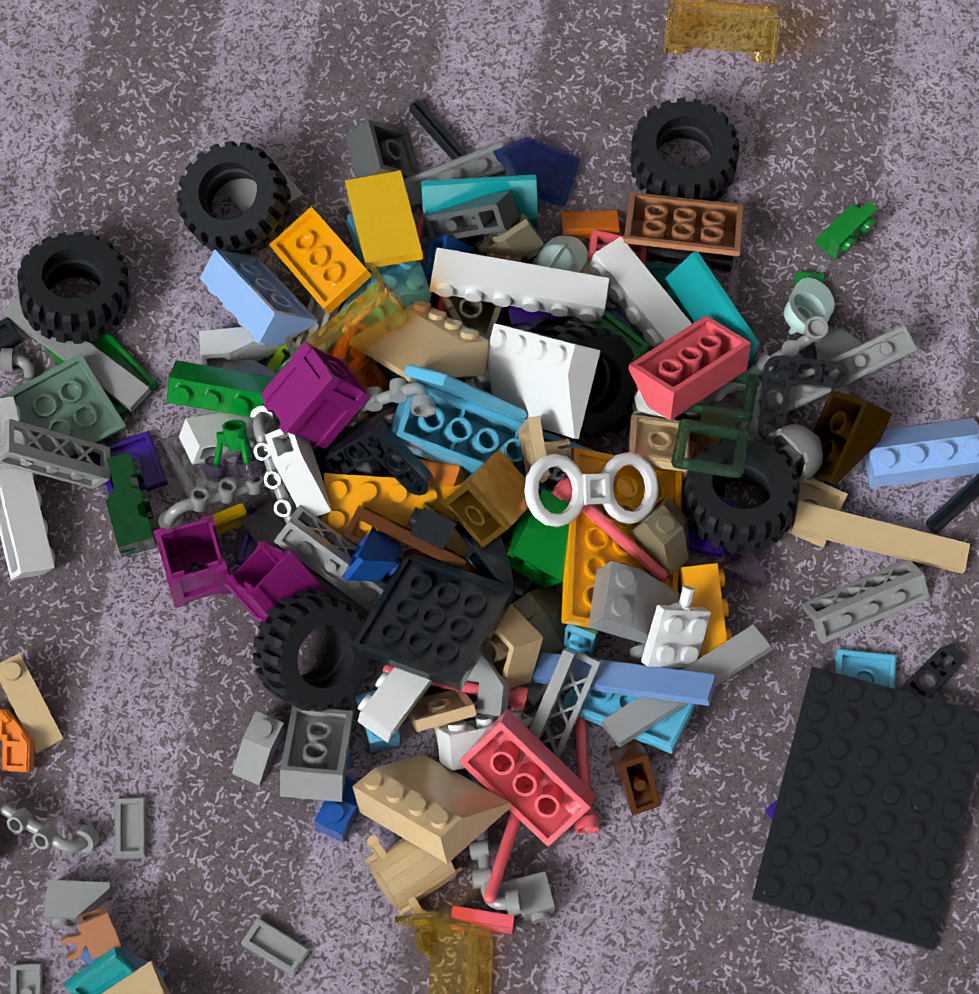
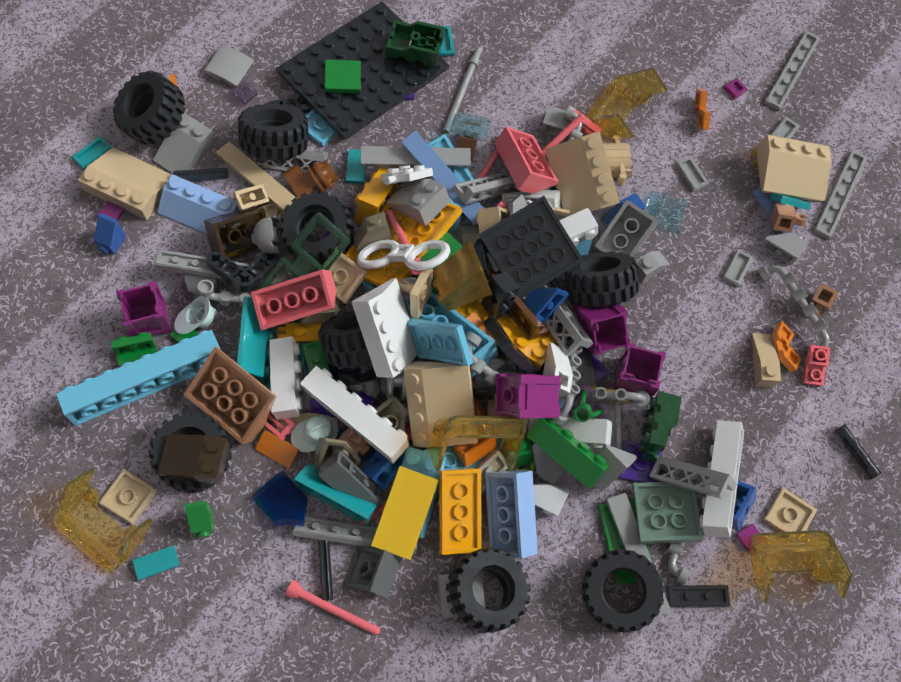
camera: 155 degrees left, 0 degrees up
(159, 416) = (617, 461): none -> light grey slope
(283, 853) = (666, 210): none -> clear light blue slope
(455, 92) = (297, 591): none -> coral piece
(616, 95) = (200, 519): none -> green slope
(631, 35) = (156, 563): none -> teal tile
(648, 806) = (471, 125): none -> clear light blue slope
(664, 129) = (194, 458): none -> dark brown slope
(719, 79) = (128, 496): none -> tan tile
(719, 929) = (473, 63): none -> light grey bar
(779, 658) = (355, 172): none -> teal tile
(790, 942) = (447, 47): none -> teal tile
(805, 573) = (317, 178): none -> dark orange beam
(806, 198) = (136, 379): none -> medium azure brick
(820, 879) = (416, 42): none -> dark green piece
(864, 488) = (251, 197): none -> tan slope
(870, 253) = (139, 304): none -> magenta container
(883, 755) = (342, 76): none -> green tile
(941, 601) = (273, 131): none -> black tyre

